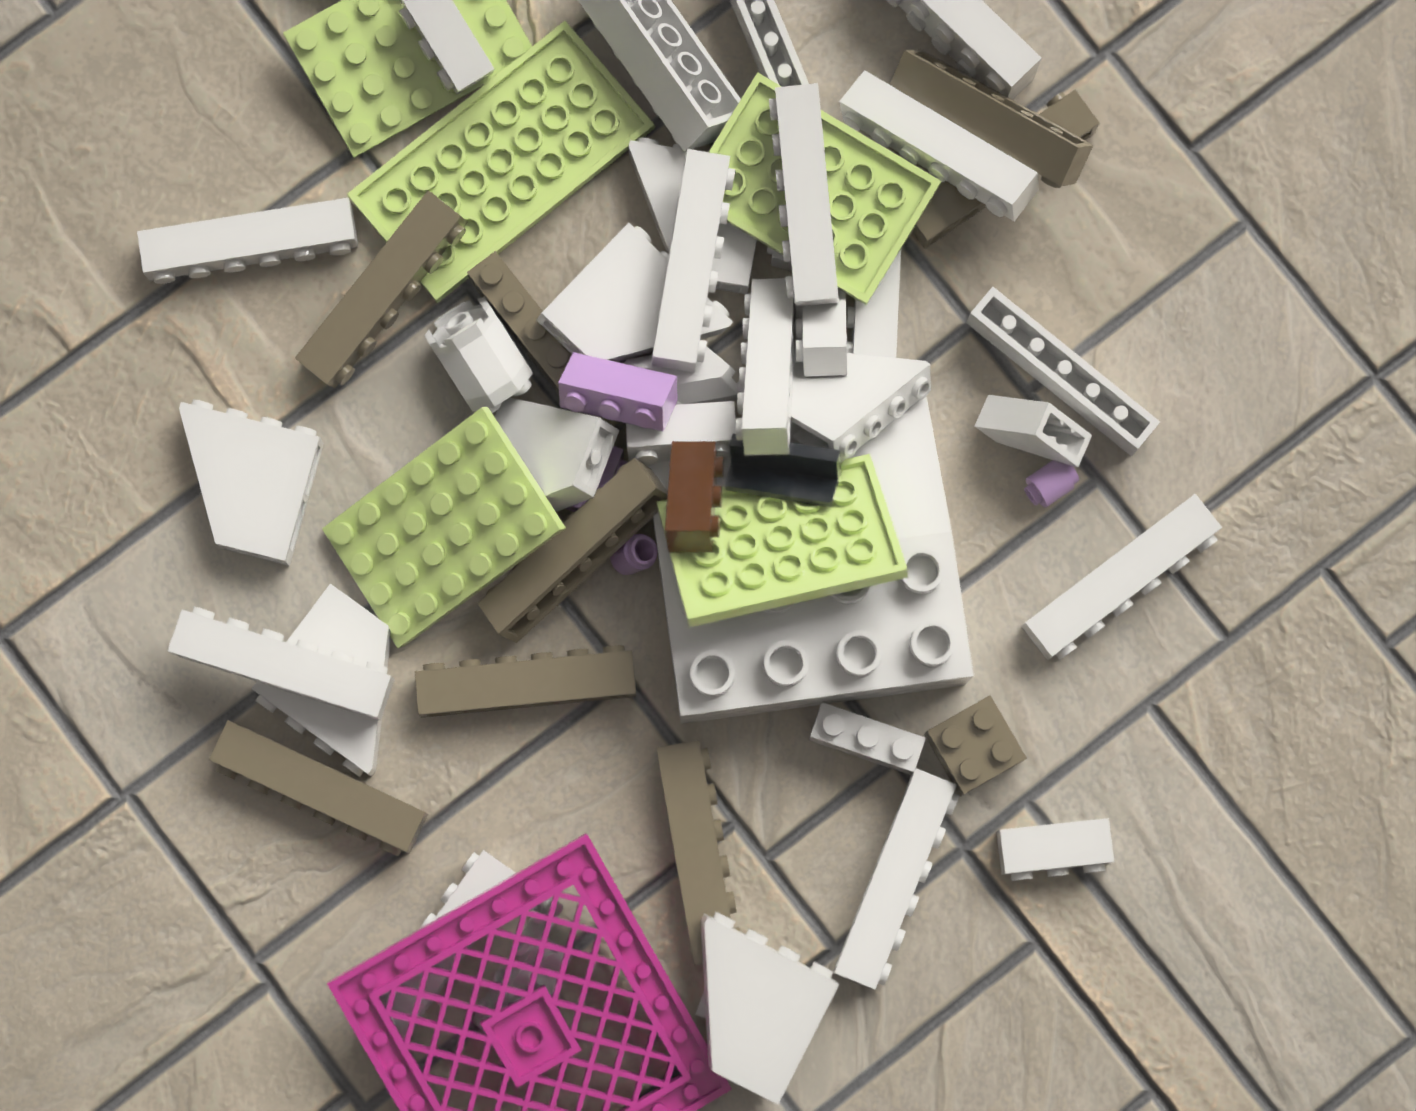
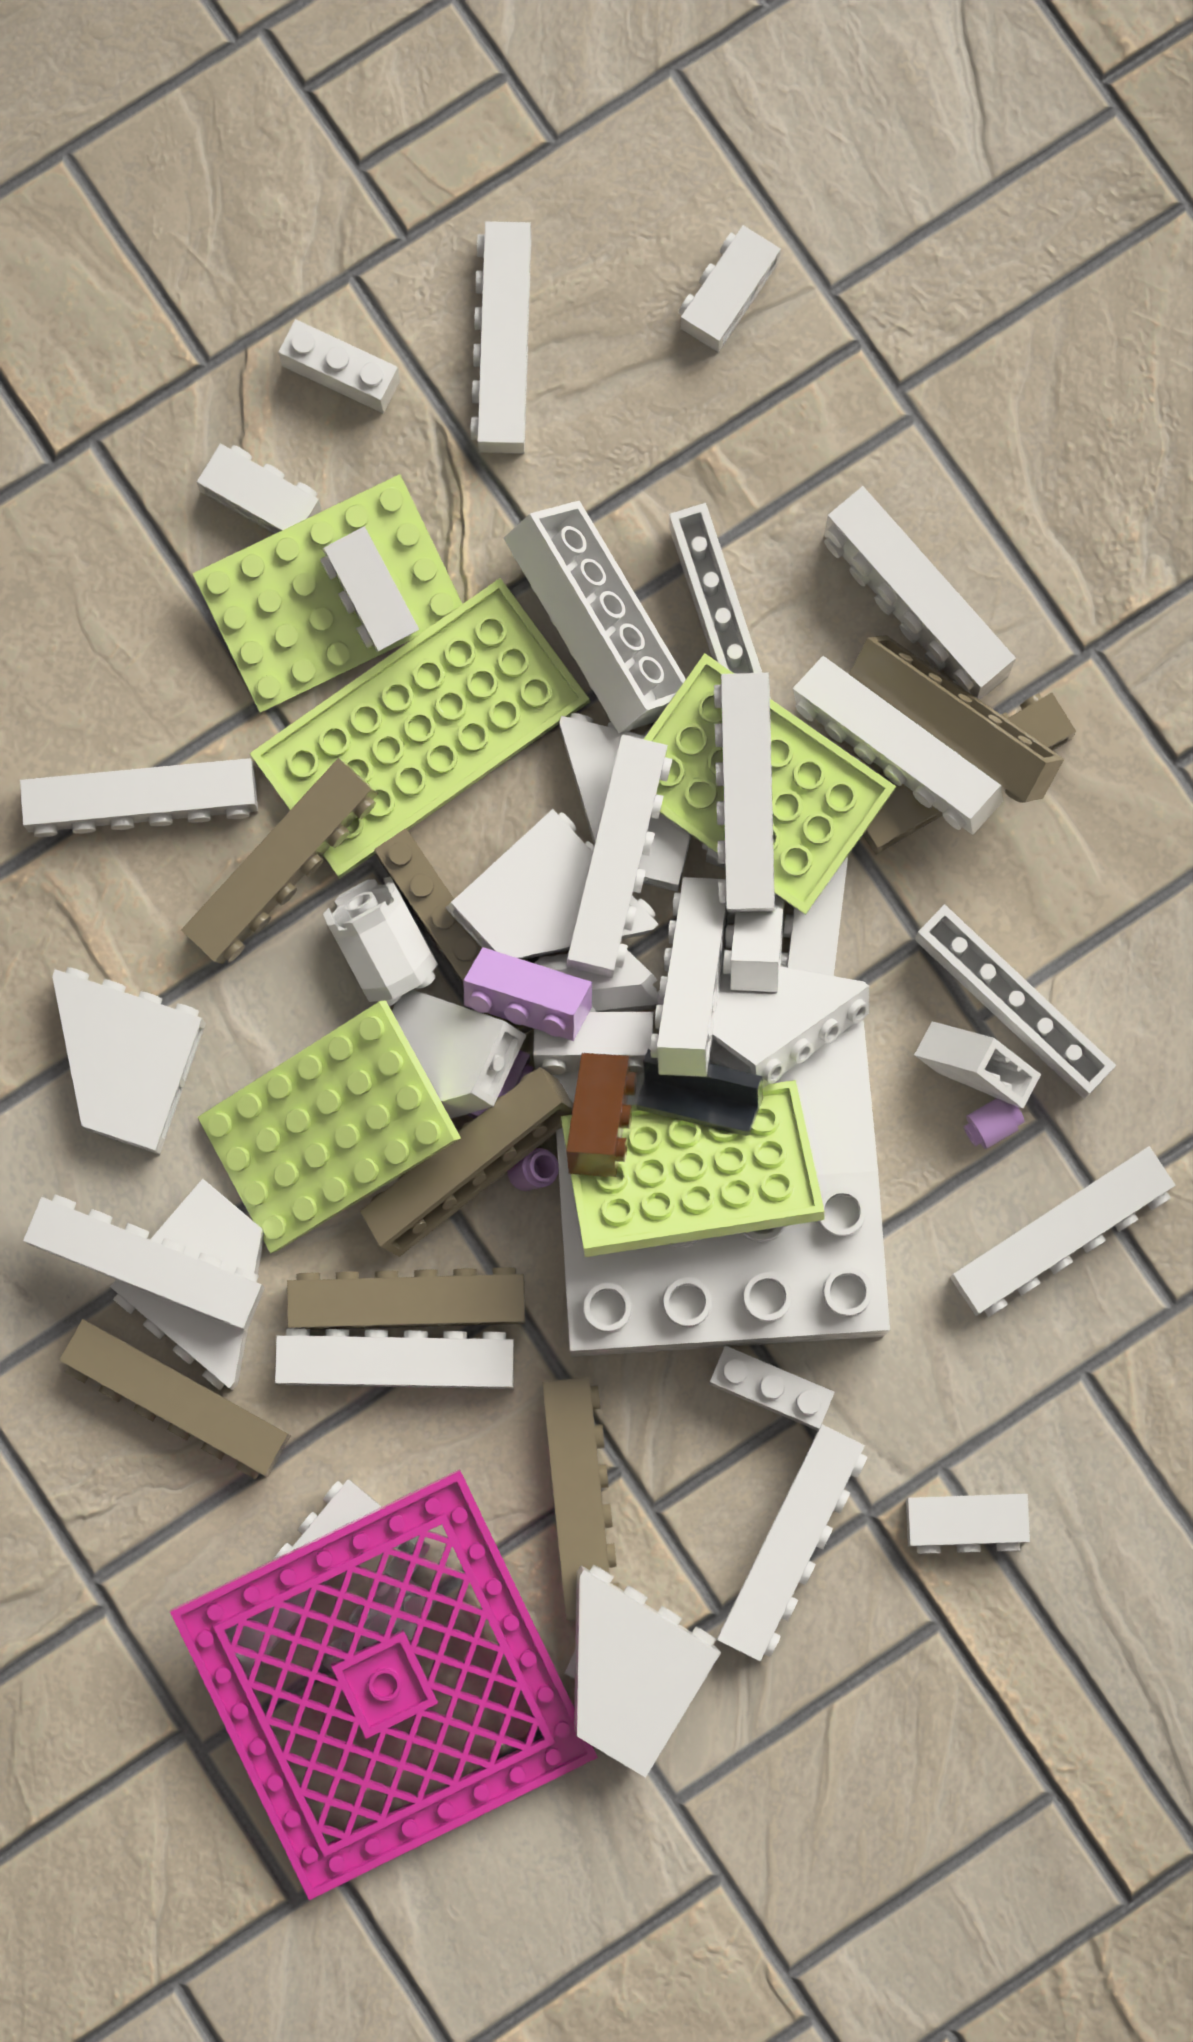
camera: 10 degrees right, 0 degrees up
(519, 739) = (395, 1361): none -> white brick
(975, 745) = (888, 1404): dark tan brick -> none

